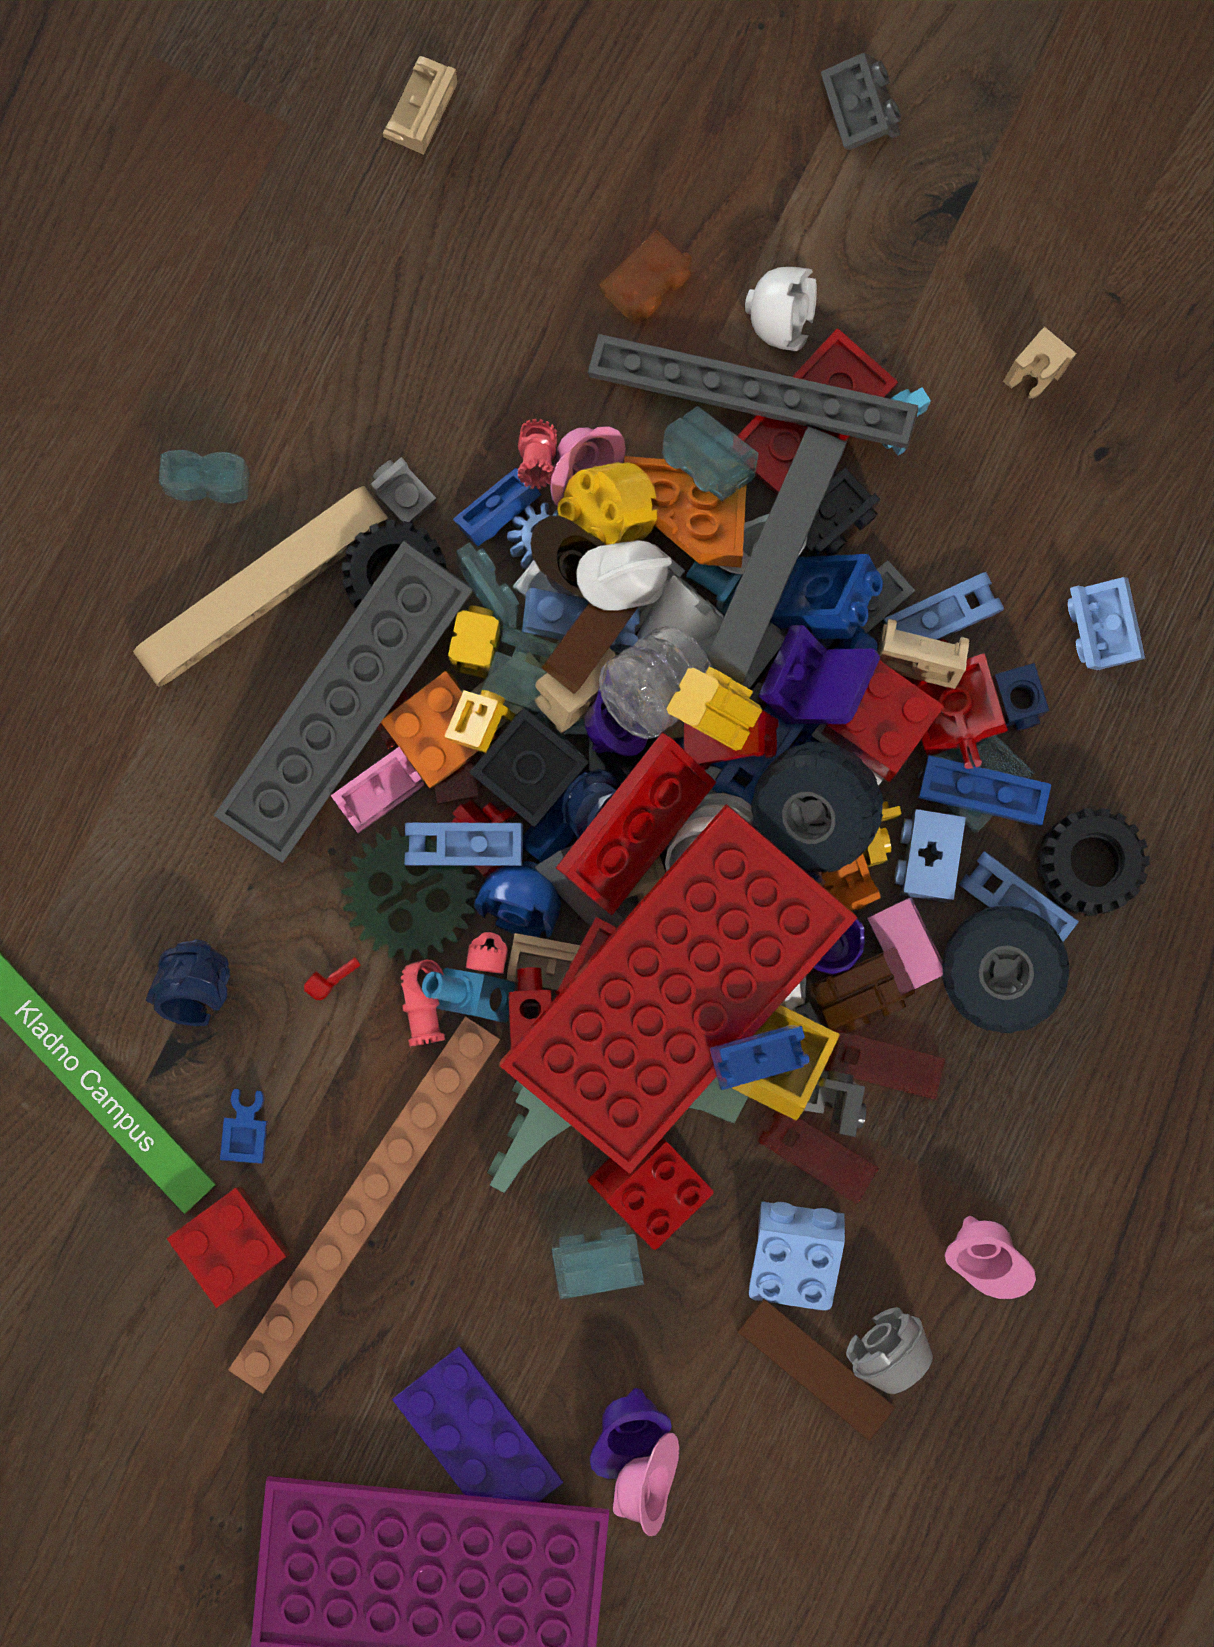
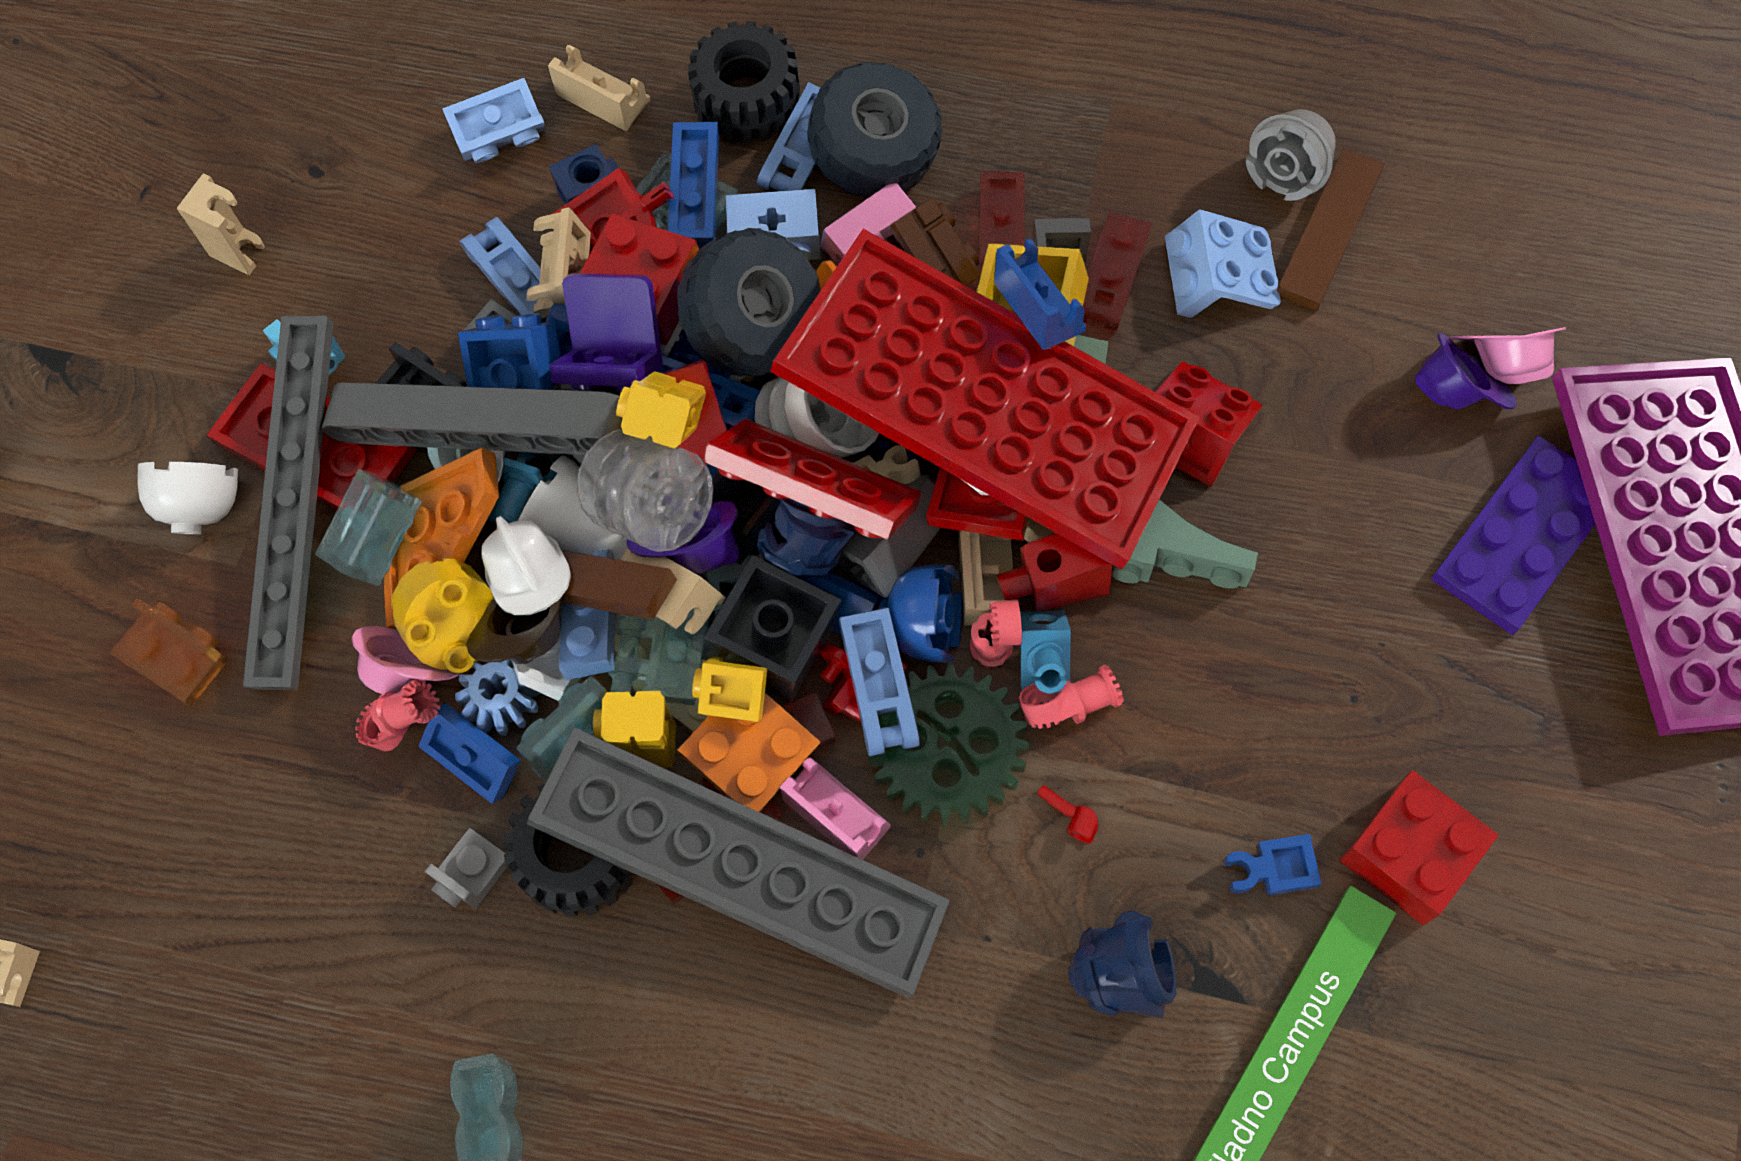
camera: 95 degrees left, 15 degrees down
(258, 587) = (618, 1014): tan beam -> none
(364, 1205) = (1320, 715): nougat plate -> none
(597, 1264) = (1299, 451): clear light blue brick -> none
(989, 1261) = (1167, 92): bright pink piece -> none
(1125, 727) = (598, 90): none -> tan hinge

